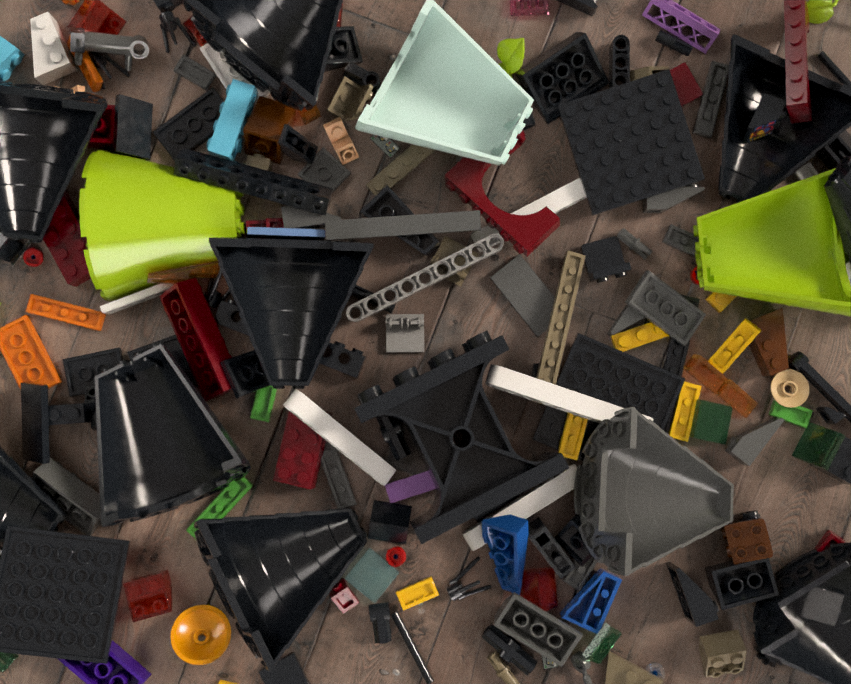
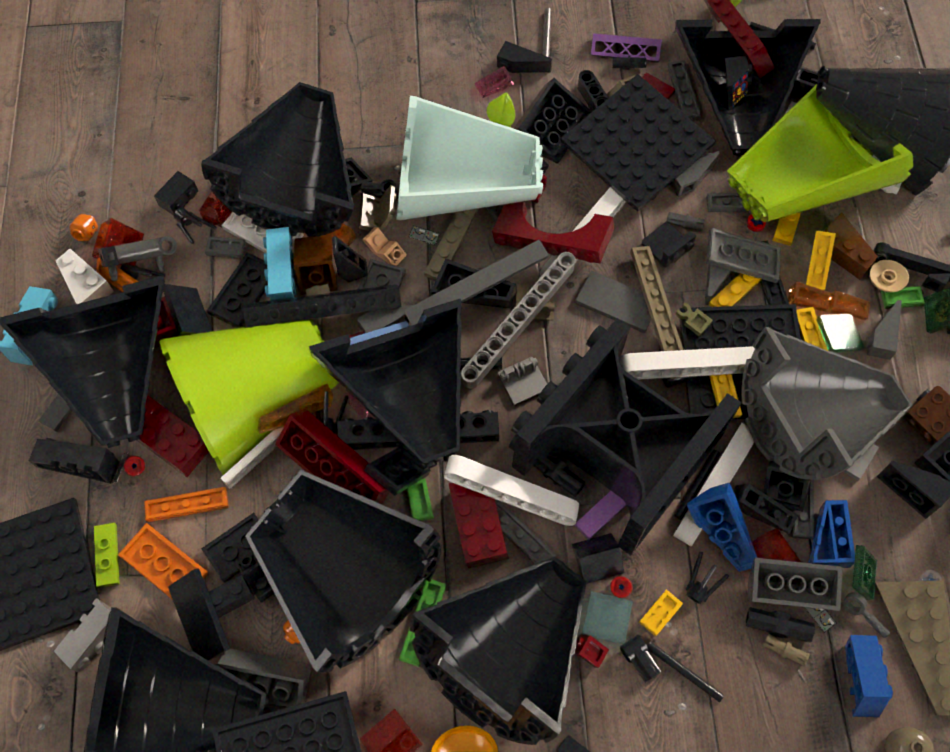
camera: 20 degrees left, 20 degrees down
(584, 354) = (696, 321): none -> olive plate

